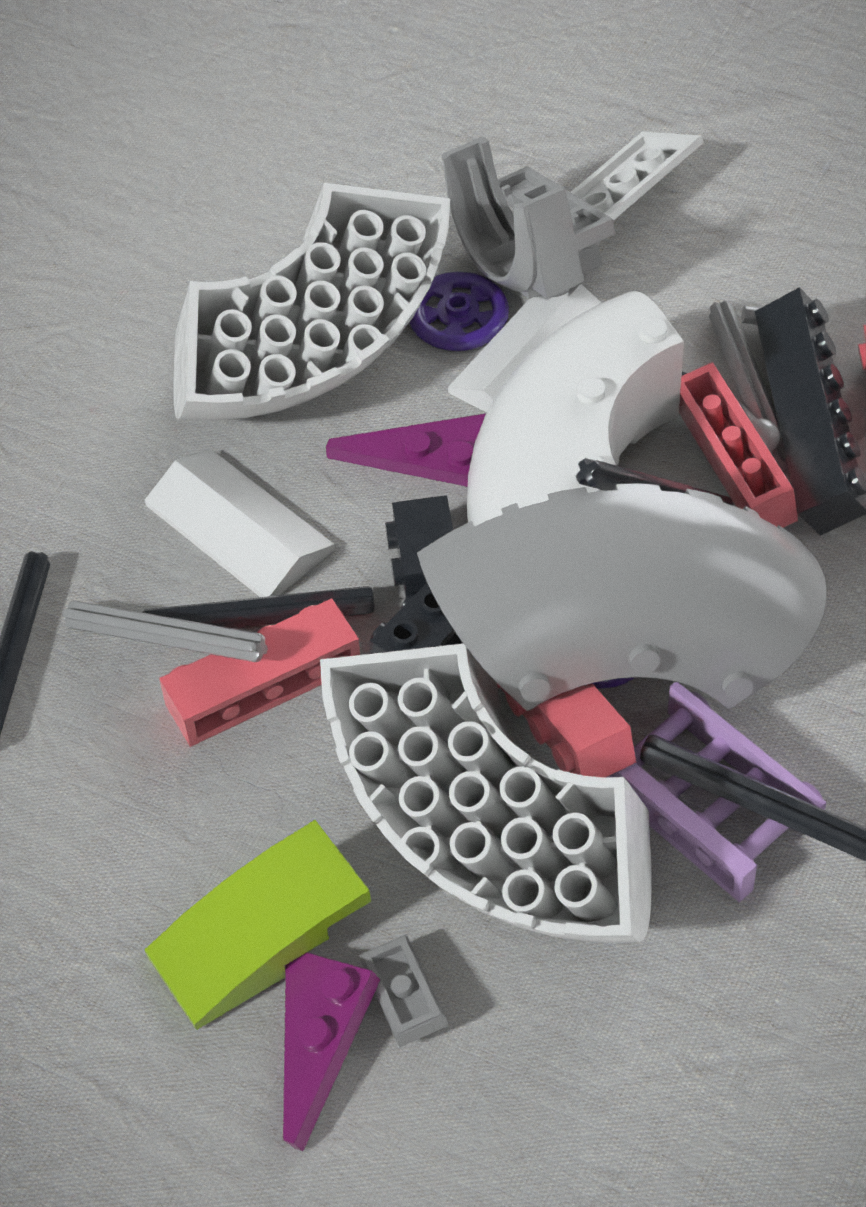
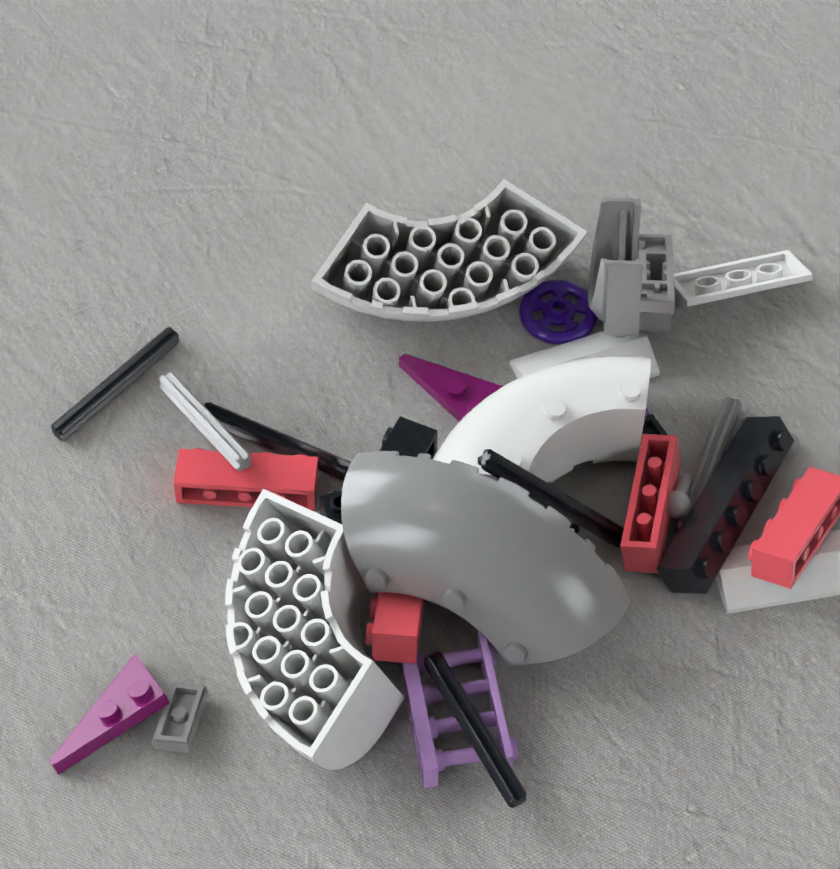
camera: 30 degrees right, 0 degrees up
(237, 523) = (309, 377): white slope -> none
(256, 924) = (126, 628): lime slope -> none

